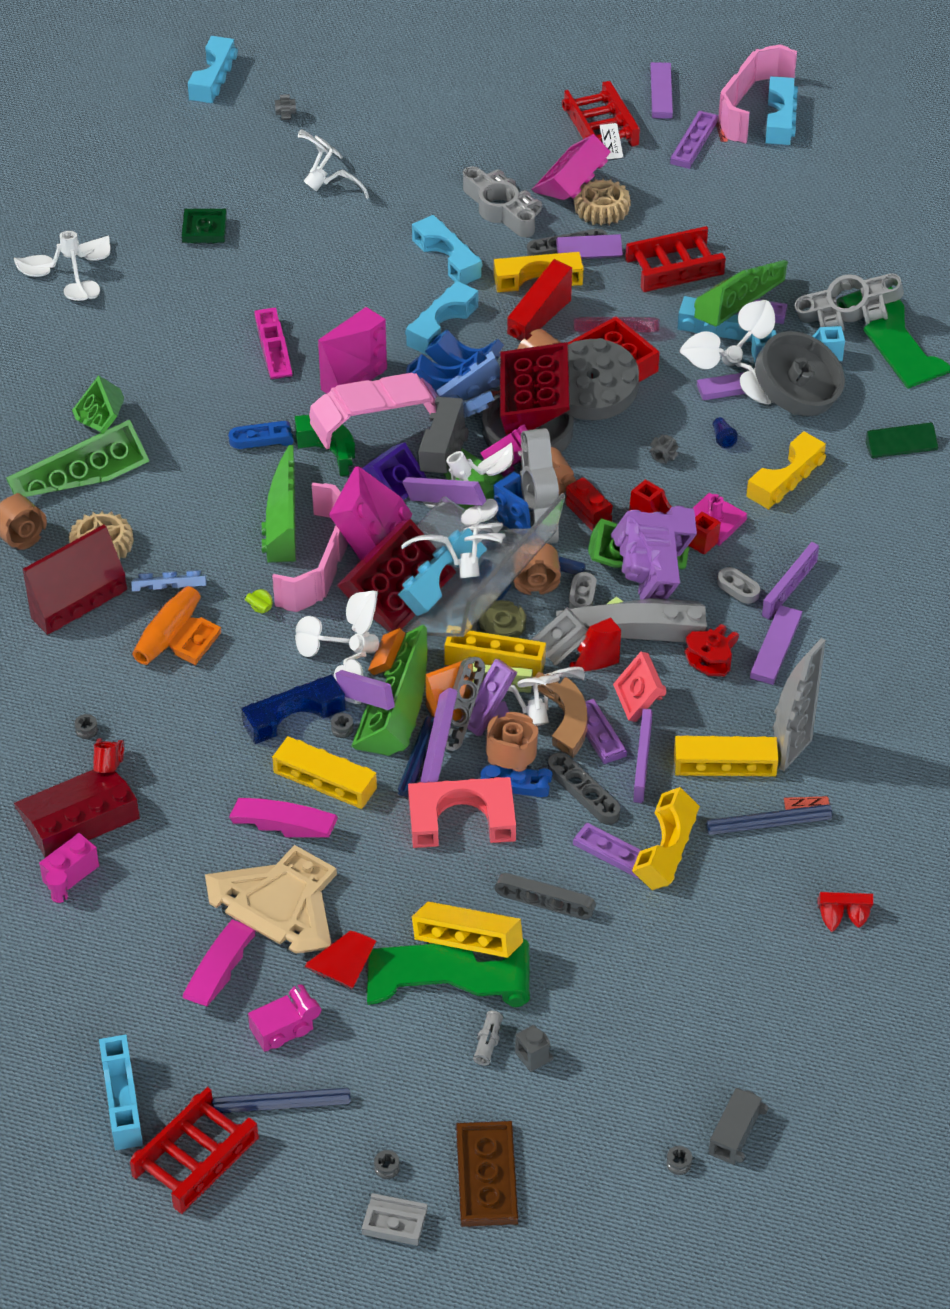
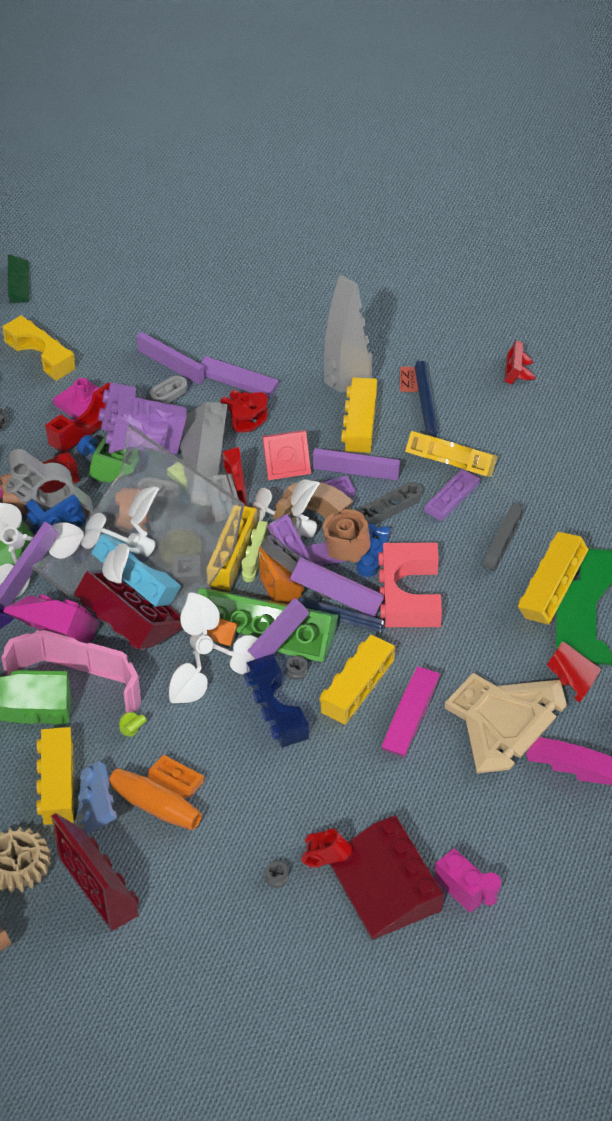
camera: 85 degrees left, 0 degrees up
(201, 553) = (56, 774): none -> yellow brick

